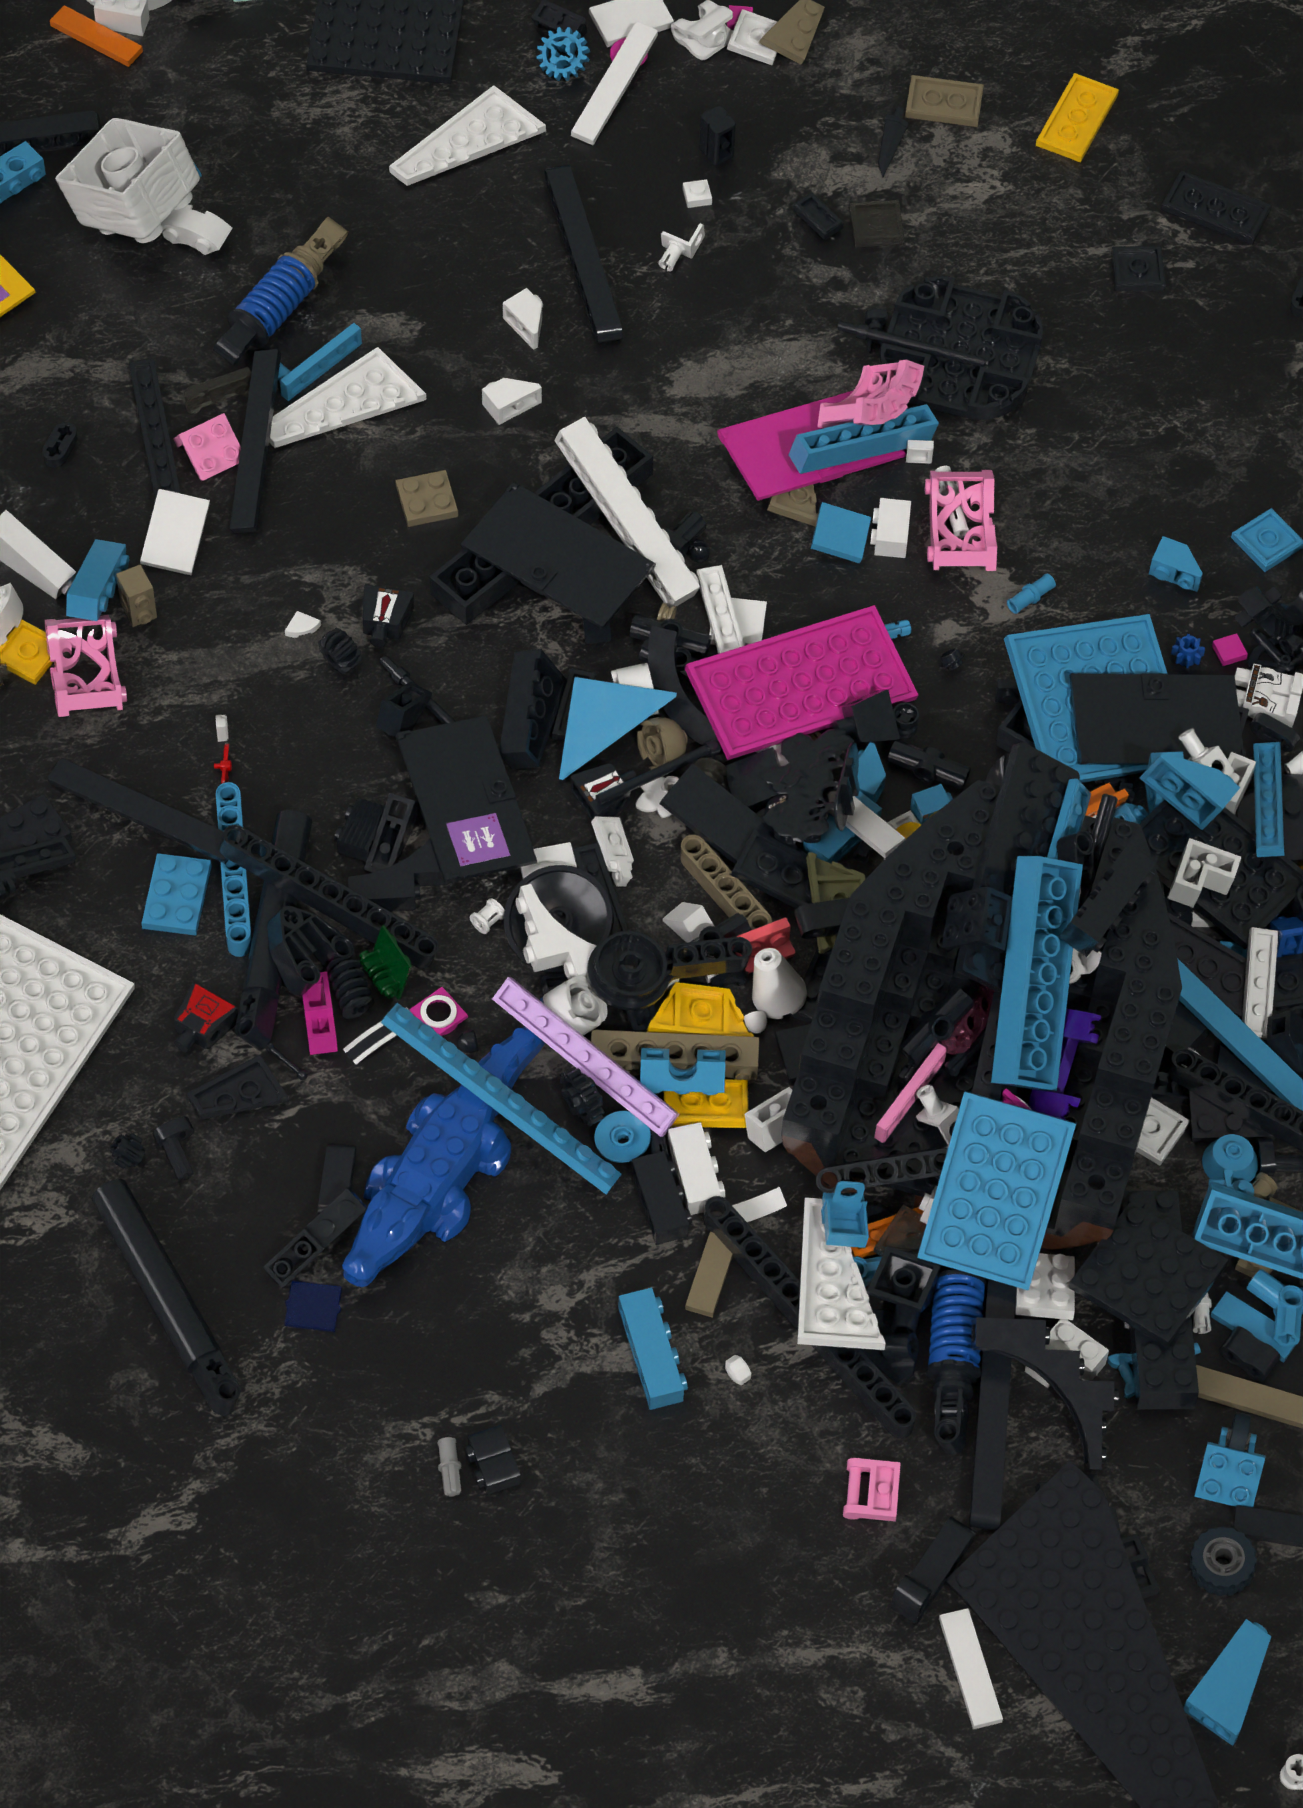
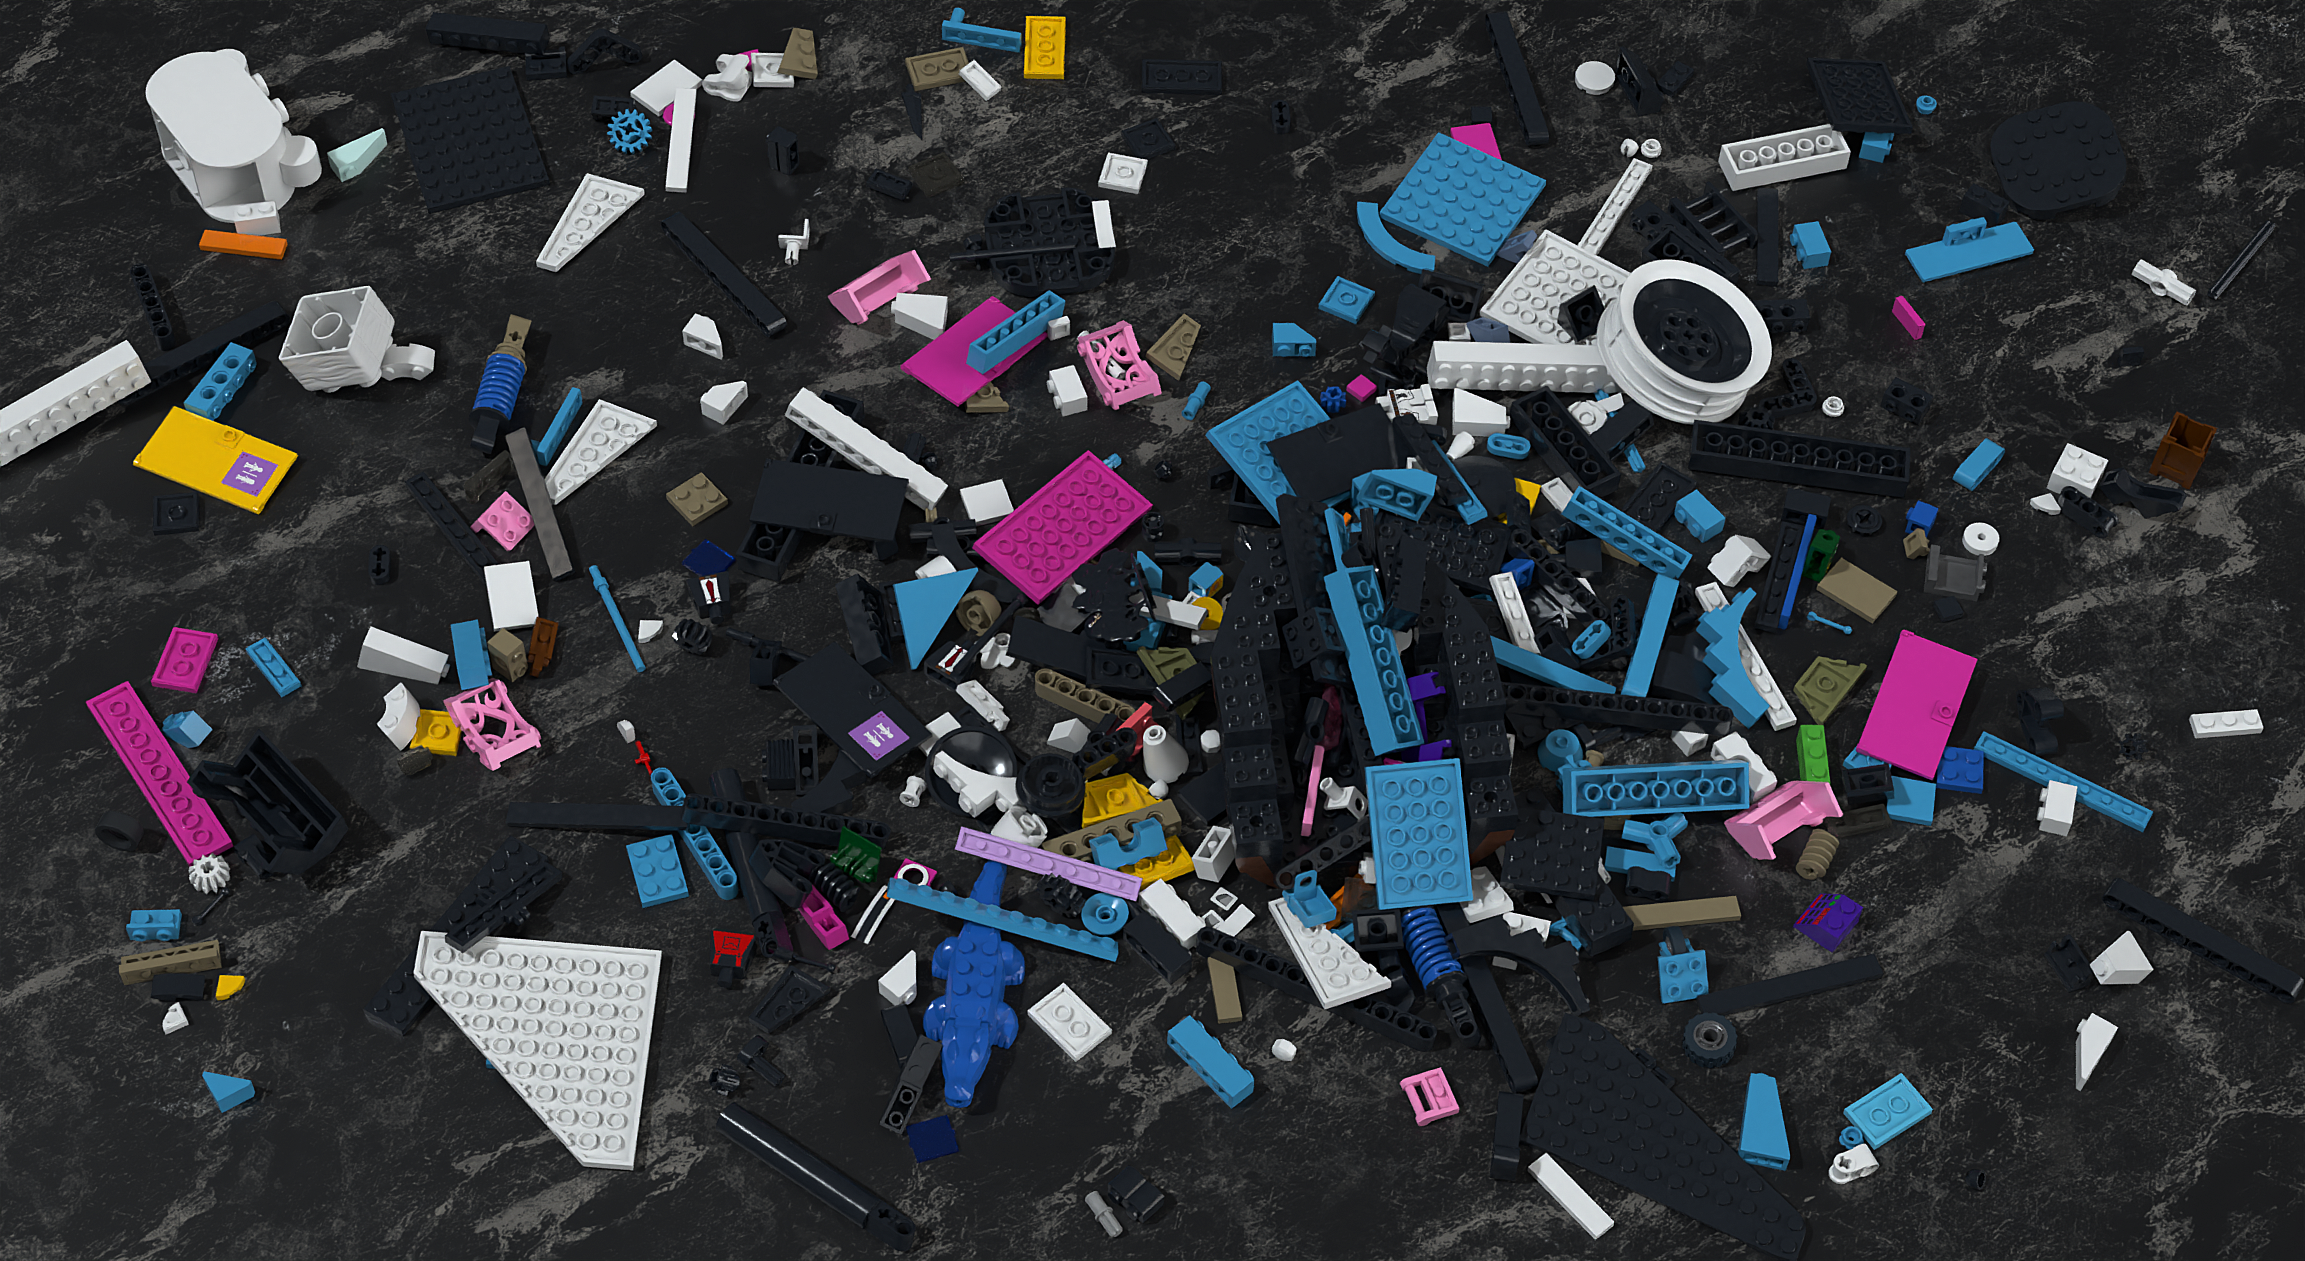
camera: 25 degrees left, 5 degrees down
(180, 597) = (541, 644): none -> reddish brown hinge
(276, 557) = (602, 587): none -> dark azure bar
(367, 1120) = (900, 982): none -> white slope
(404, 571) = (708, 559): none -> clear blue piece
(524, 1240) = (1069, 1022): none -> white tile
(697, 193) = (787, 200): white plate -> none
(720, 608) = (971, 497): white tile -> none
(737, 1192) = (1212, 919): none -> sticker
(742, 331) = (879, 286): none -> bright pink windscreen
(764, 1173) = (1224, 898): none -> white sticker
(776, 378) = (921, 313): none -> white slope
(840, 532) = (1030, 408): dark azure tile -> none
(869, 718) = (1128, 532): black torso -> none
(874, 400) = (1002, 304): bright pink fence -> none
(982, 130) = (980, 80): none -> white tile
(986, 65) = (977, 35): none -> dark azure piece
(1030, 349) = (1103, 224): none -> white sticker
(1040, 521) = (1175, 346): none -> dark tan wing
(1089, 297) = (1123, 173): none -> white tile
(1202, 754) = (1383, 464): white bracket -> none
(1202, 867) = (1443, 543): white brick -> none
(1254, 764) = (1430, 459): none -> black plate

